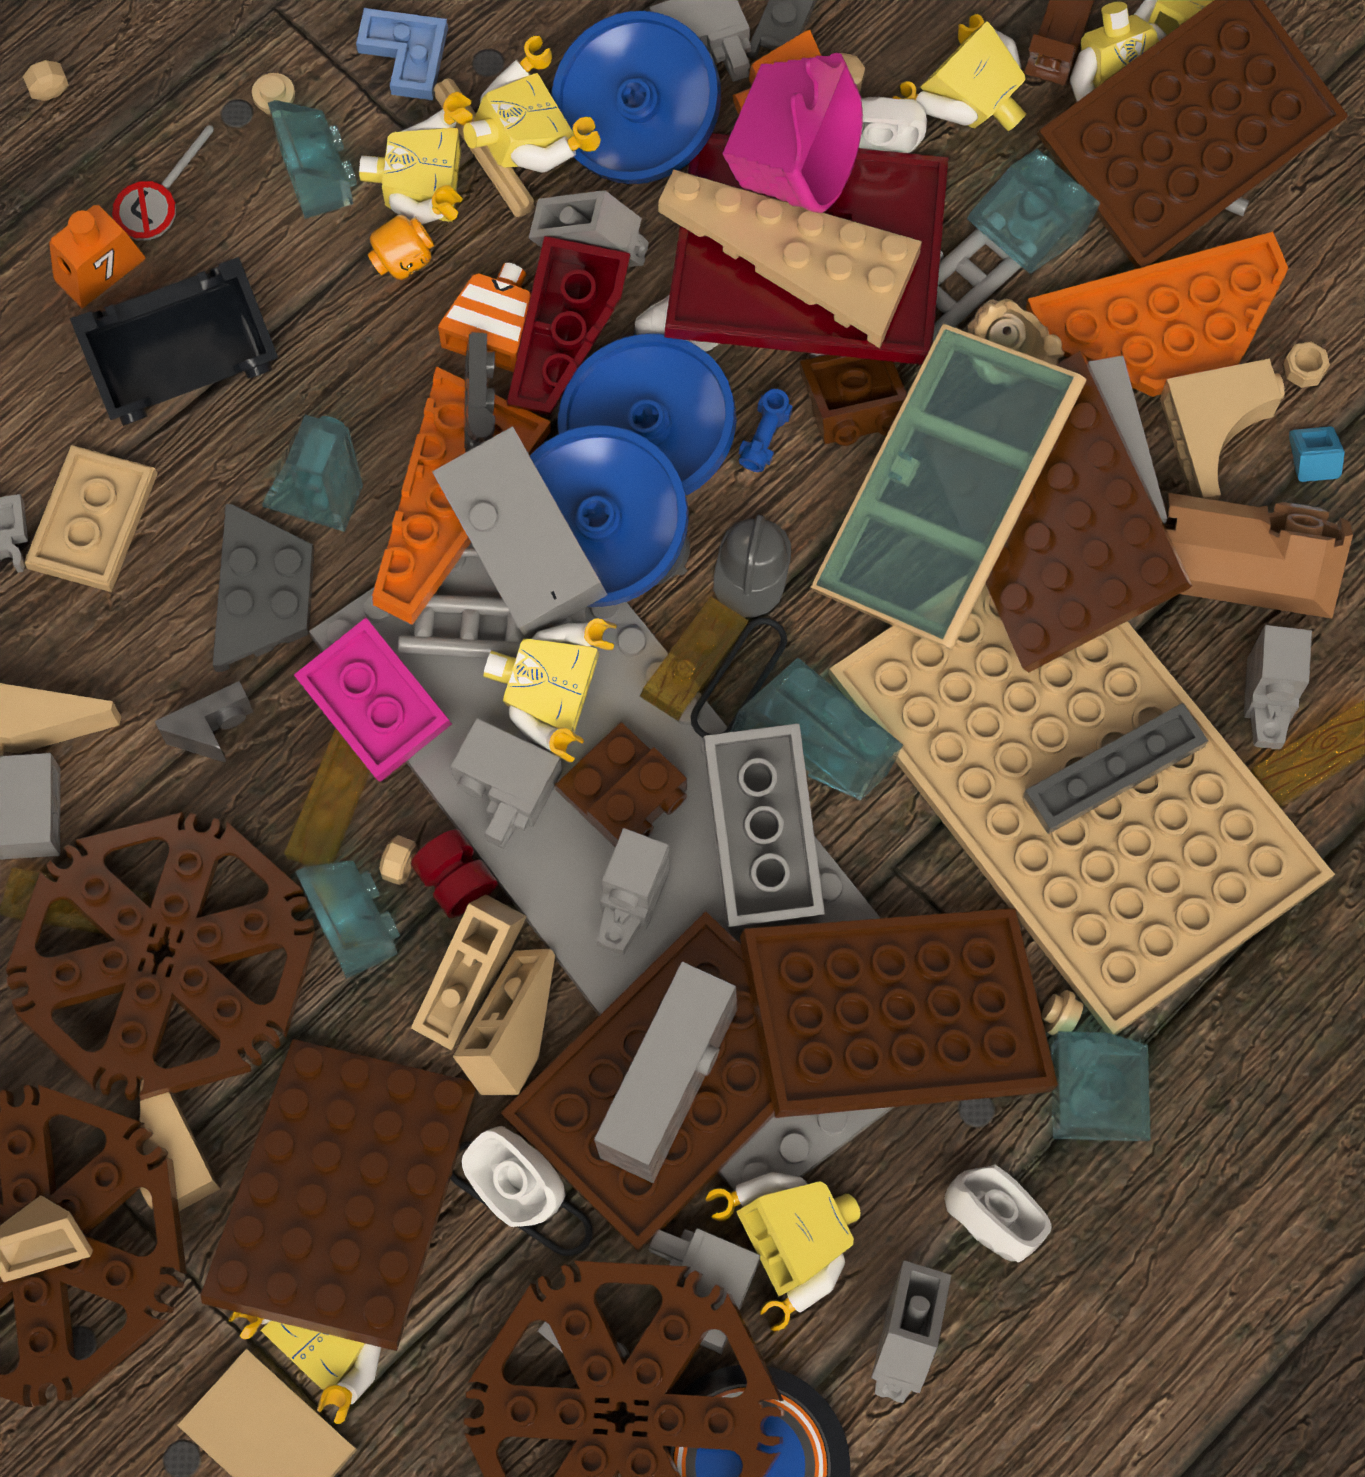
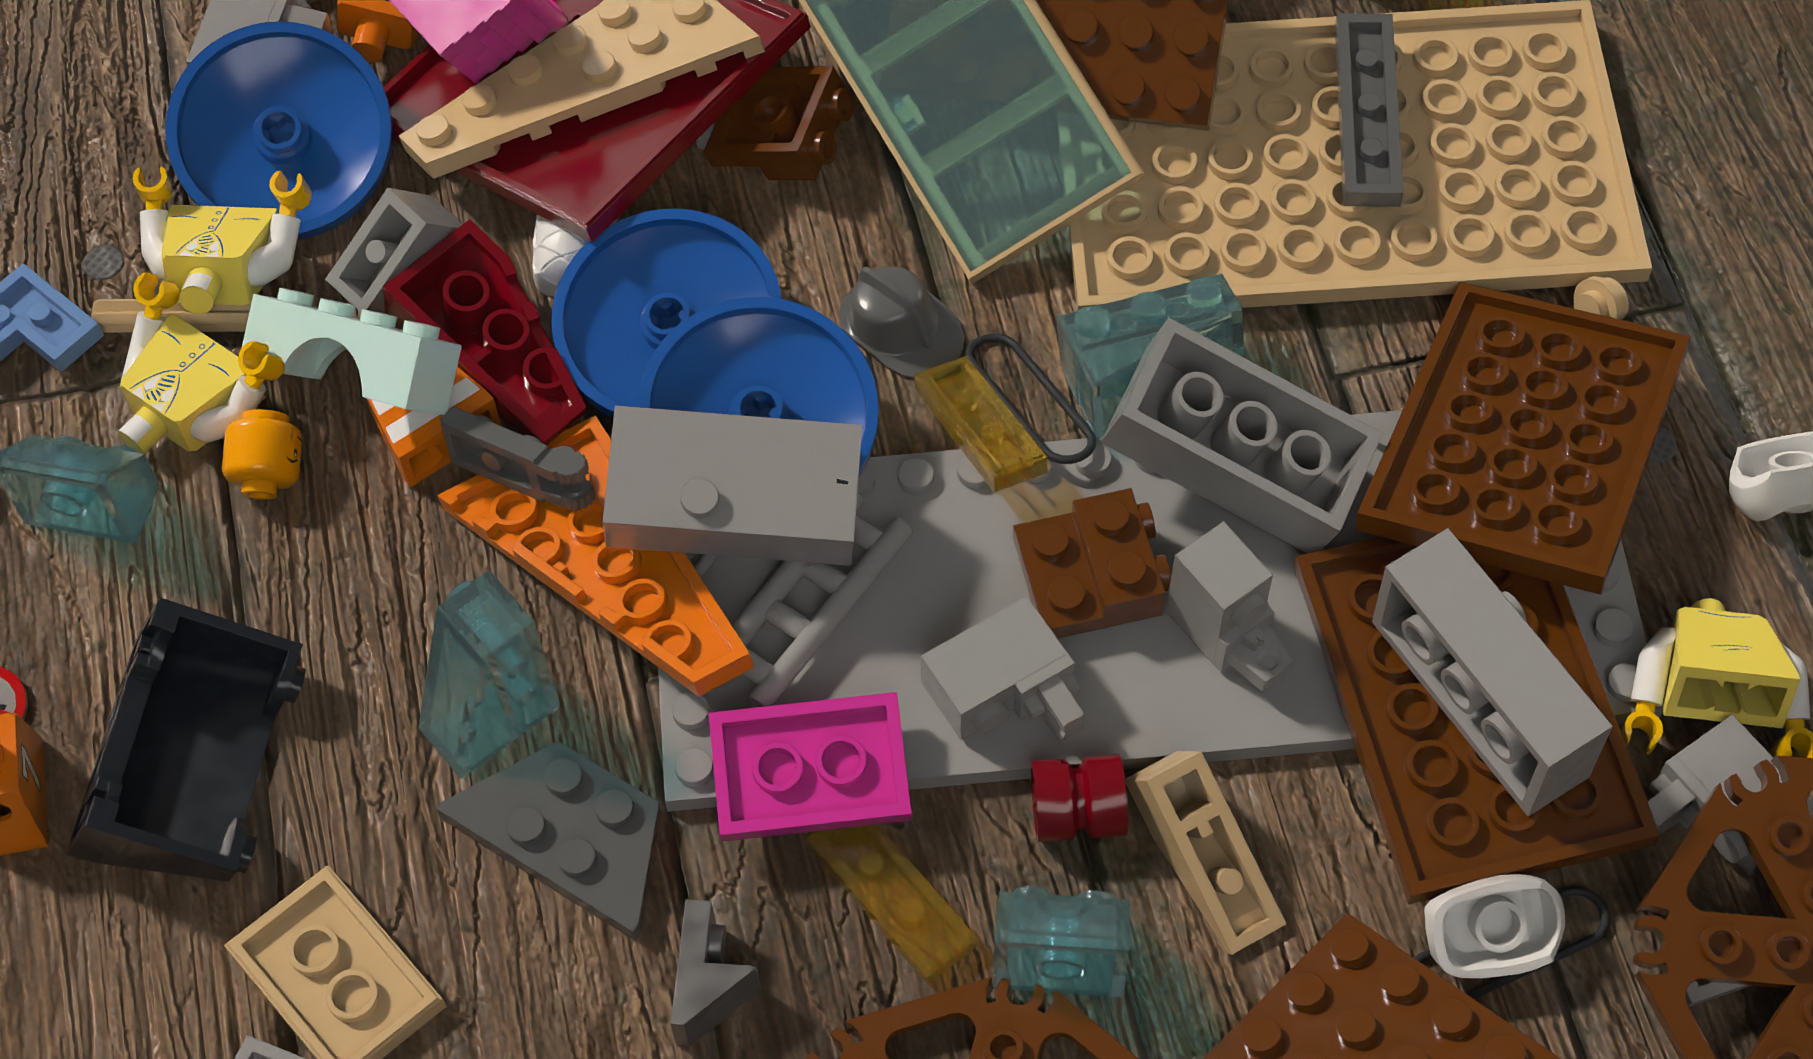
camera: 55 degrees left, 10 degrees down
(396, 859) = (1020, 852): tan tile -> none
(490, 281) = (394, 364): none -> light aqua arch
(509, 1026) = (1304, 835): tan slope -> none
(550, 681) = (927, 561): torso -> none
(775, 413) = (740, 208): blue bar -> none
(1100, 1087) = (1713, 311): clear light blue slope -> none

